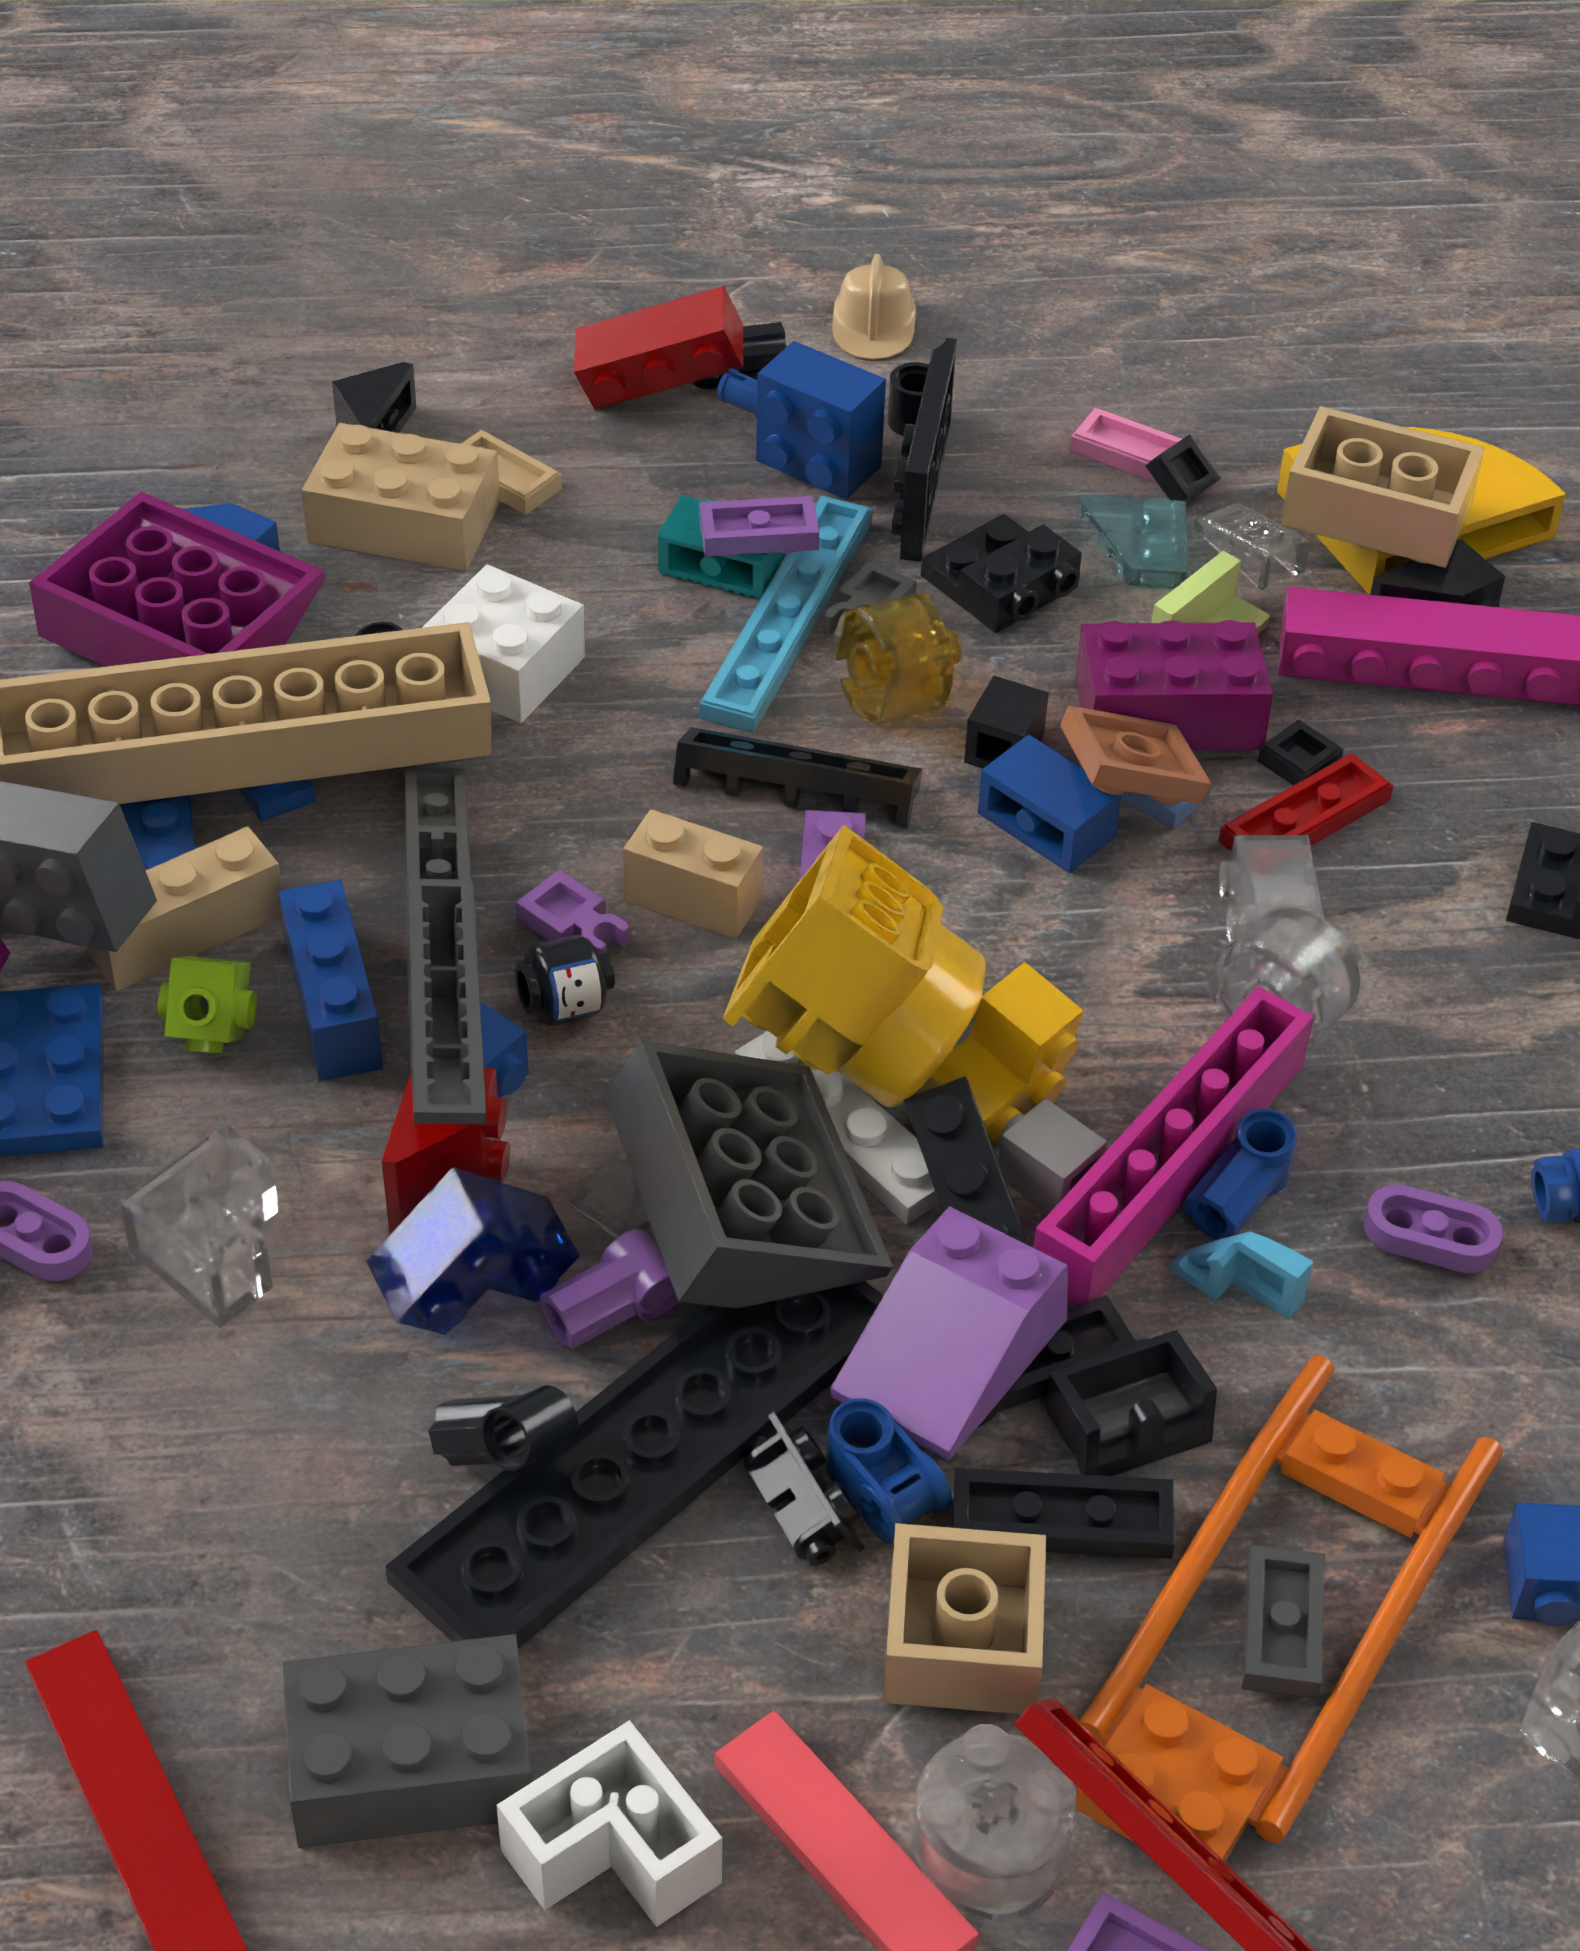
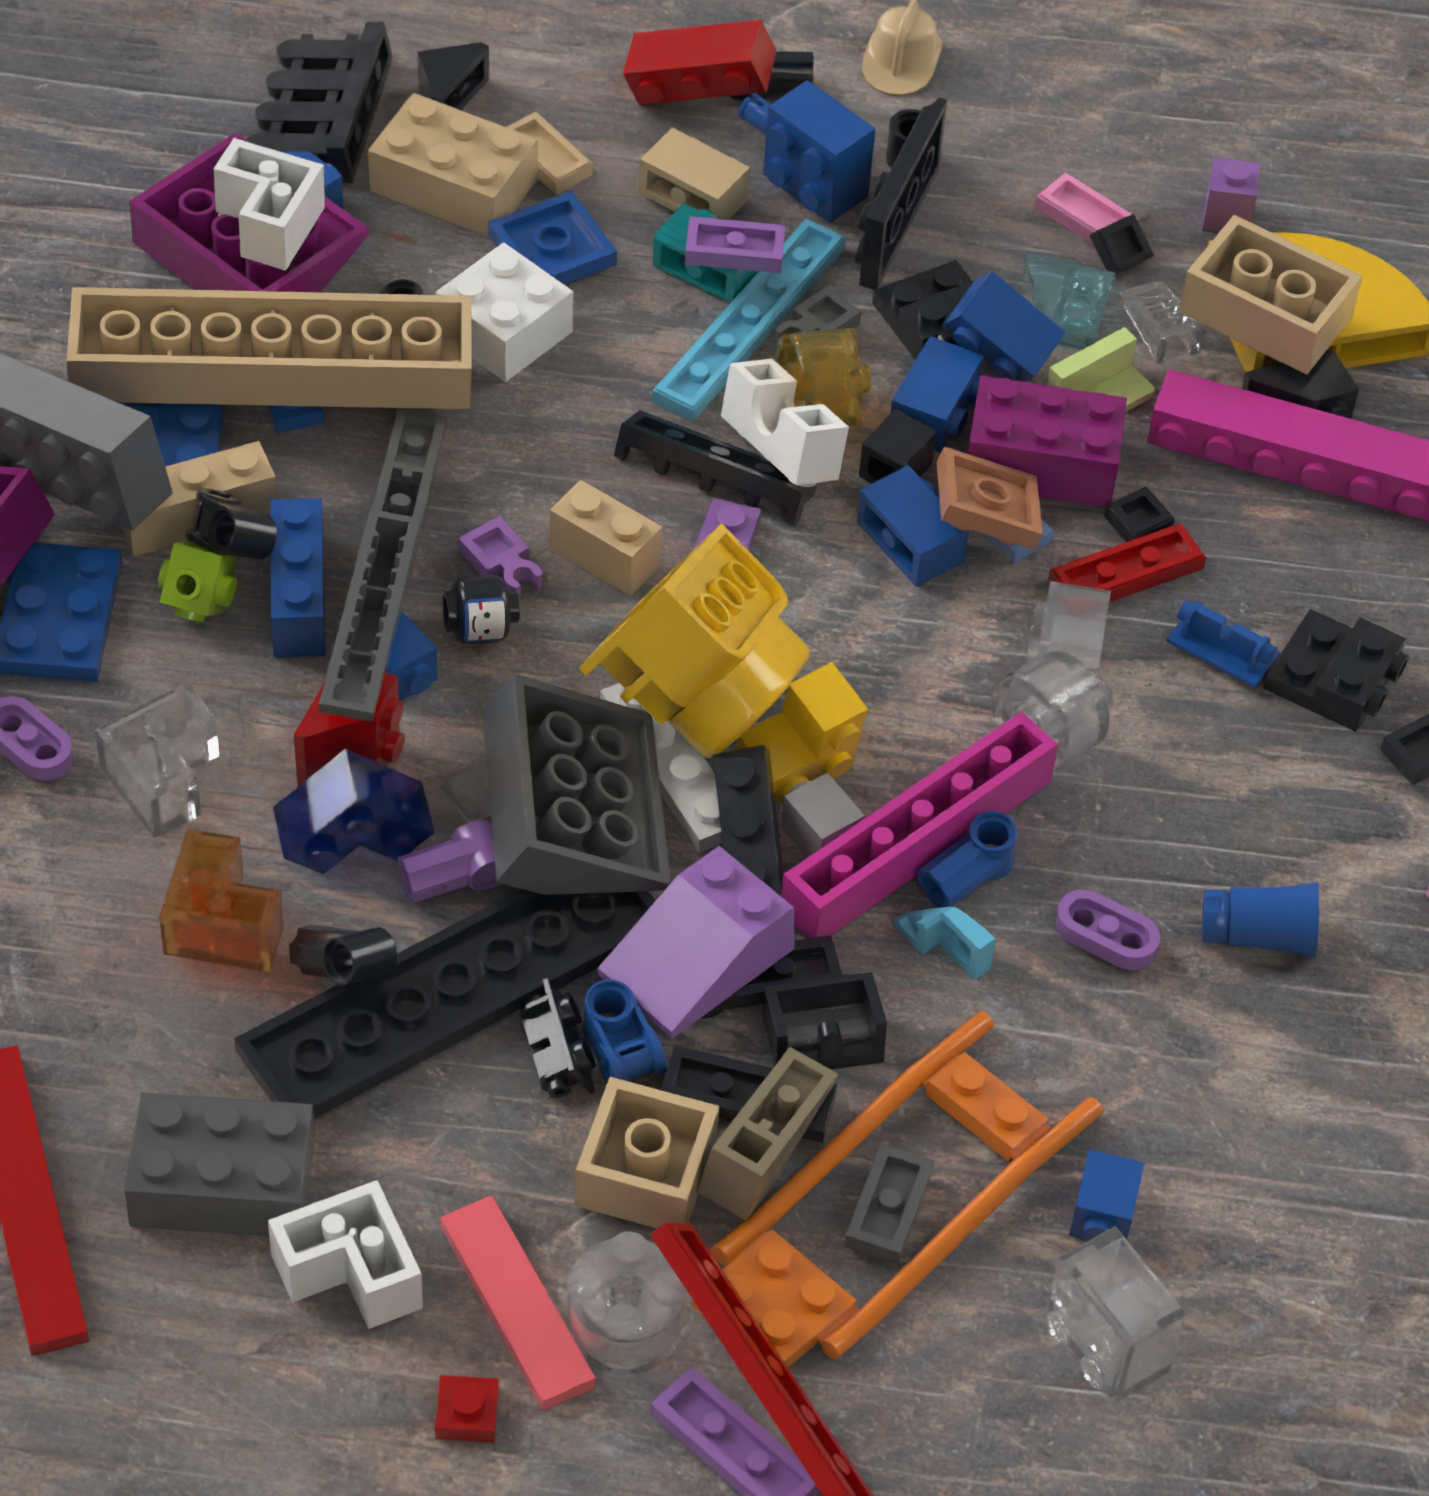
camera: 10 degrees right, 5 degrees up
(204, 546) = (272, 197): none -> white brick
(234, 441) = (348, 92): none -> black fence
(238, 929) = (231, 526): none -> black piece
(324, 1410) = (212, 913): none -> clear orange brick
(544, 551) = (556, 238): none -> blue plate
(678, 461) = (693, 174): none -> tan brick
(895, 725) = (799, 441): none -> white arch
(1035, 645) = (941, 388): none -> blue brick
(1089, 569) = (1003, 328): none -> blue brick
(1109, 1561) = (765, 1133): none -> dark tan slope
(1285, 402) = (1230, 192): none -> medium lavender brick
(1471, 884) = (1222, 646): none -> blue hinge

